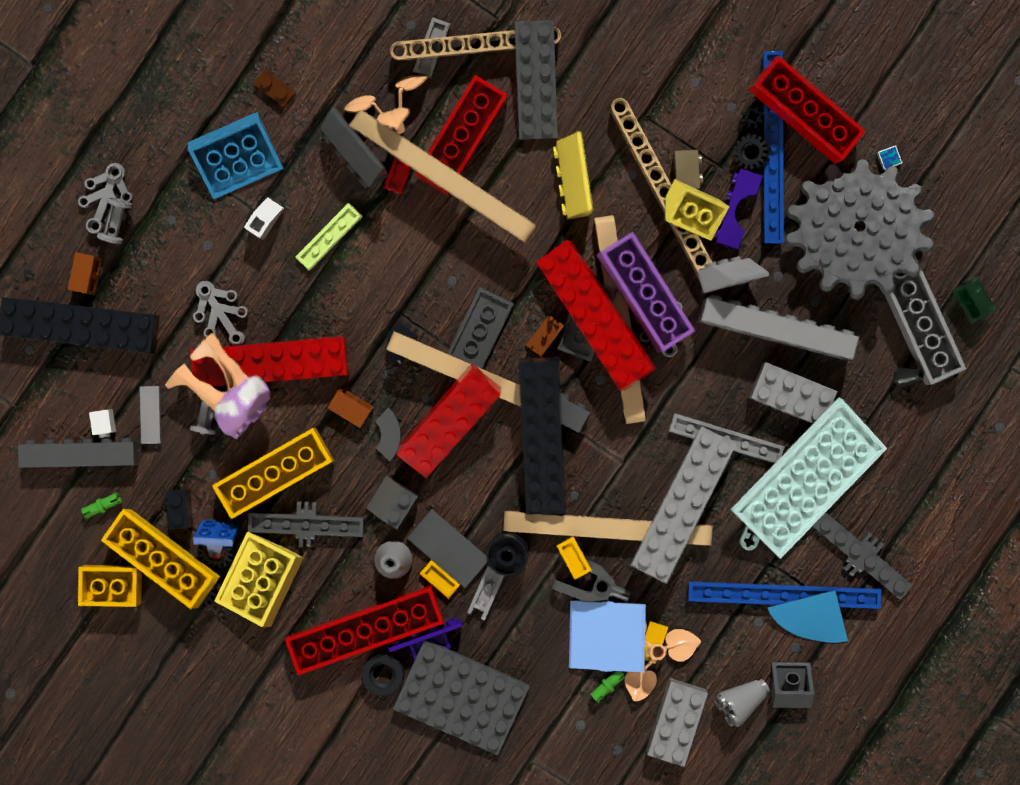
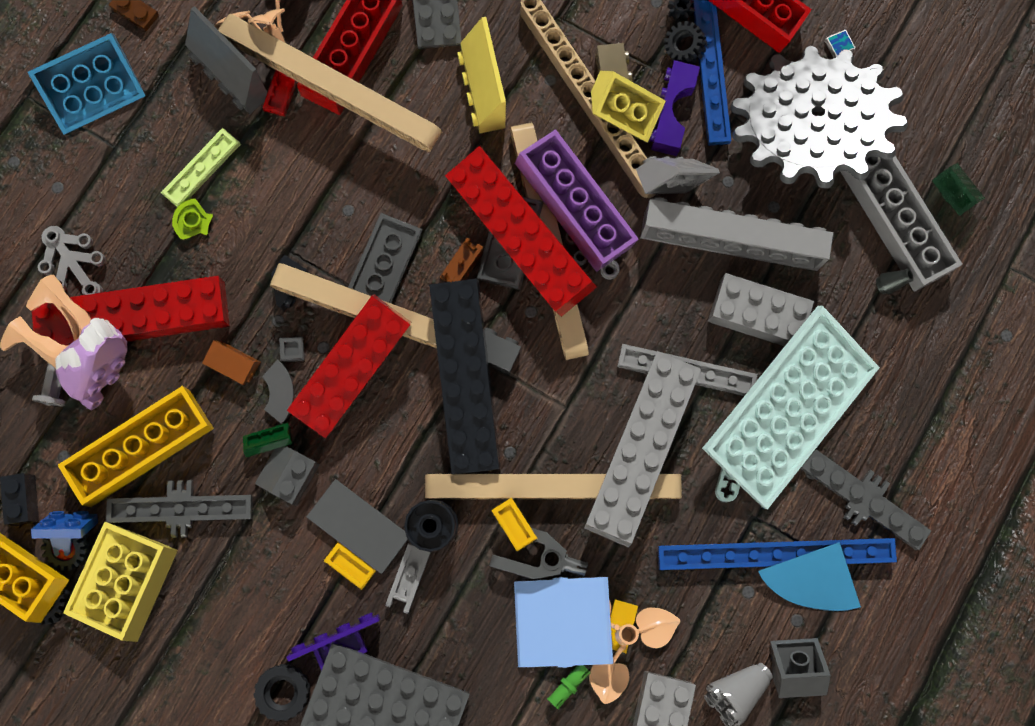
camera: 10 degrees left, 10 degrees down
(264, 218) = (120, 150): white slope -> none
(320, 282) = (190, 219): none -> lime animal
(364, 630) = (254, 636): red brick -> none
(378, 474) = (267, 440): none -> dark green plate
(399, 554) = (298, 548): light grey cone -> none
(400, 399) = (292, 349): none -> dark grey tile

